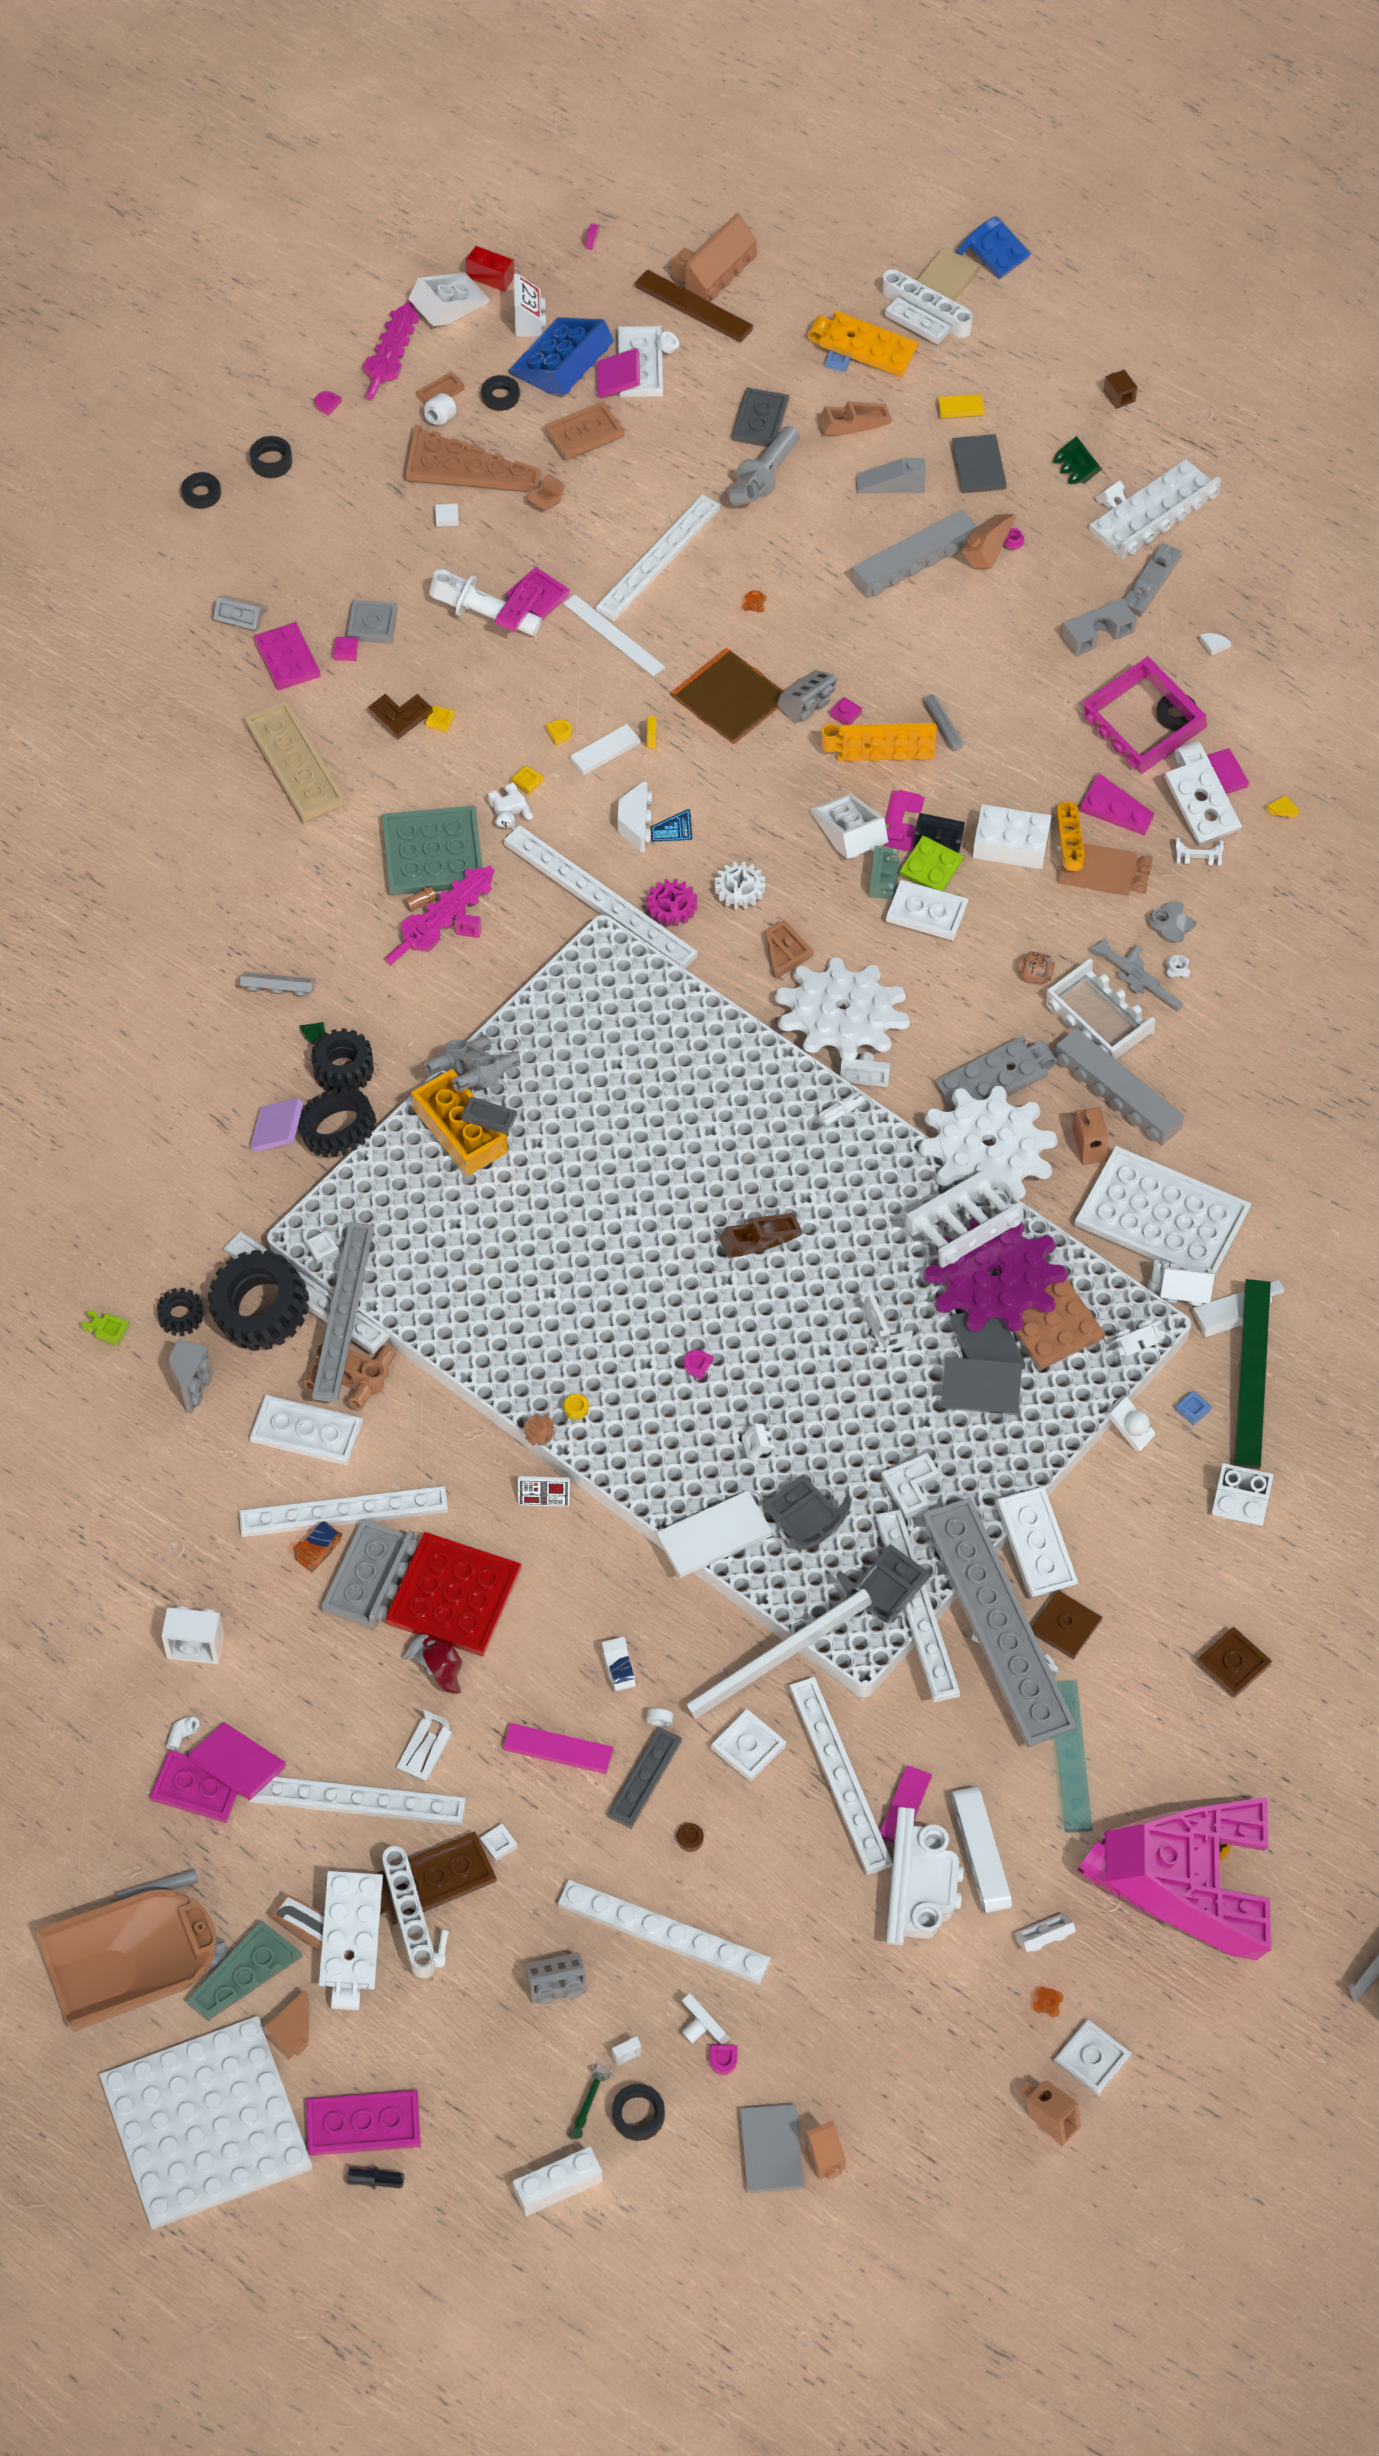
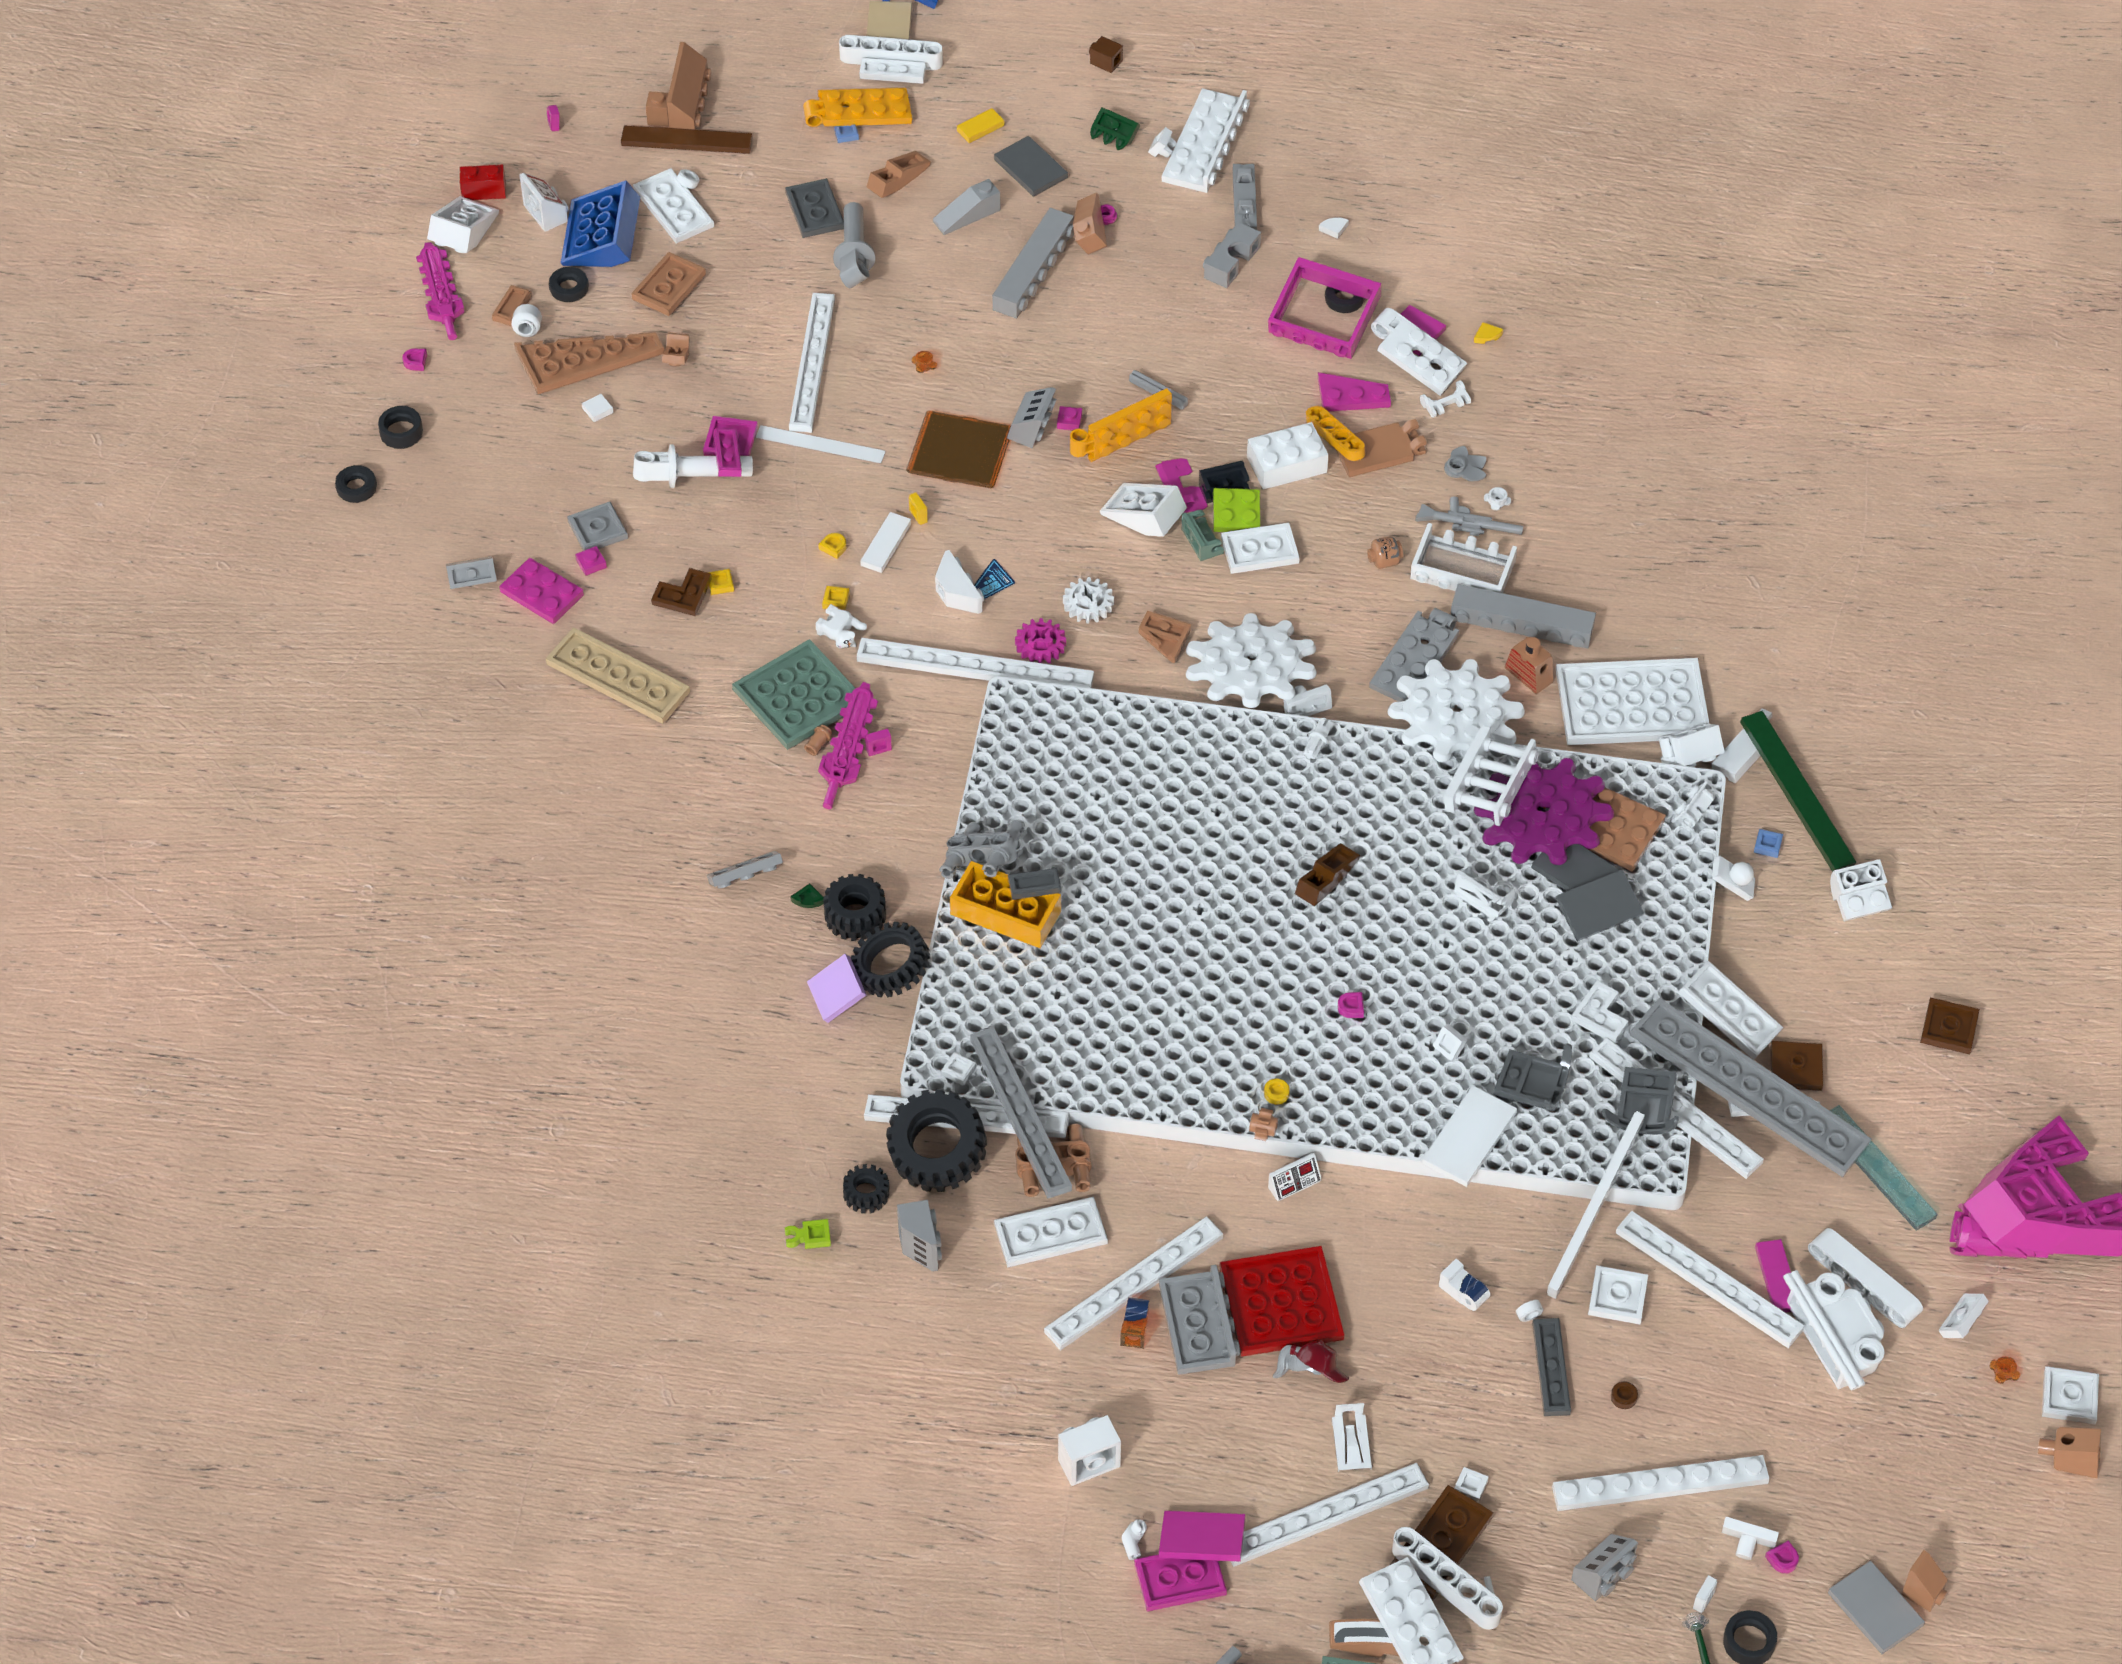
camera: 30 degrees left, 5 degrees down
(558, 1748) = (1462, 1381): dark pink tile -> none
(618, 373) = (665, 222): dark pink tile -> none

